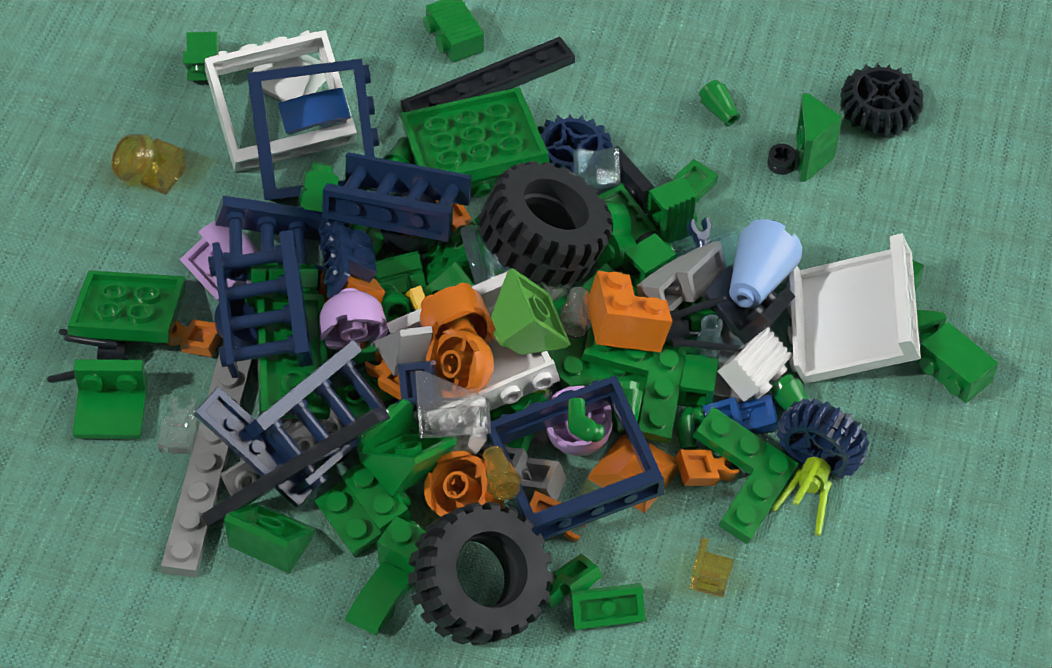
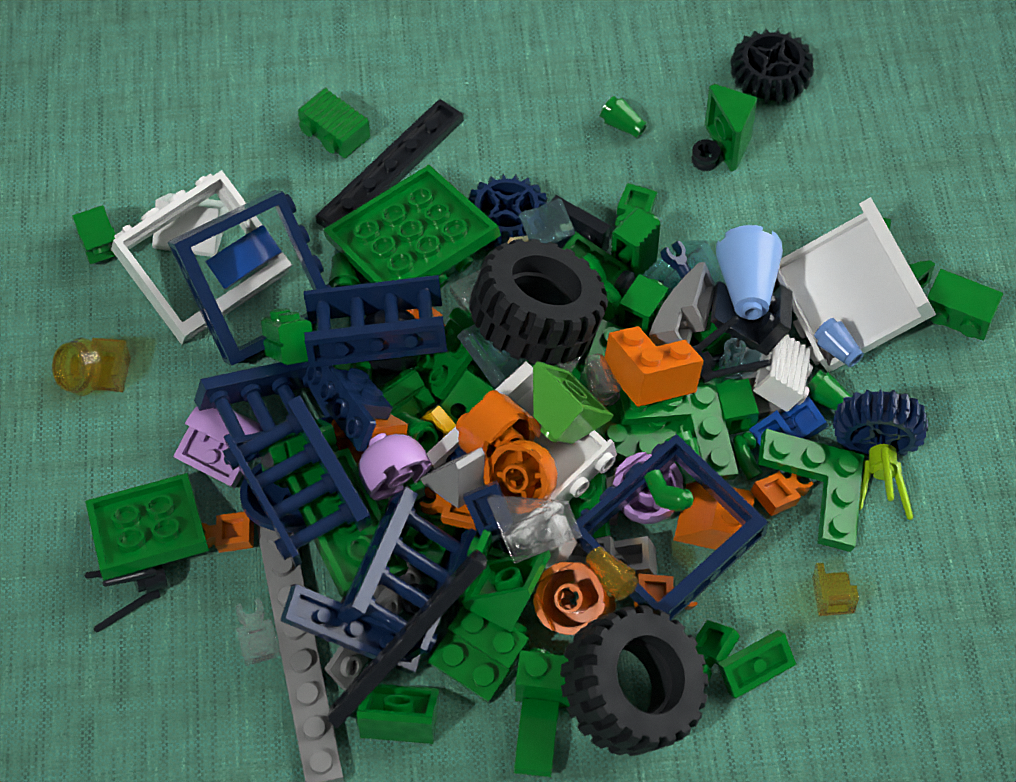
camera: 20 degrees left, 5 degrees up
(109, 399) = (172, 631): green bracket -> none
(818, 354) = (837, 341): none -> medium blue cone

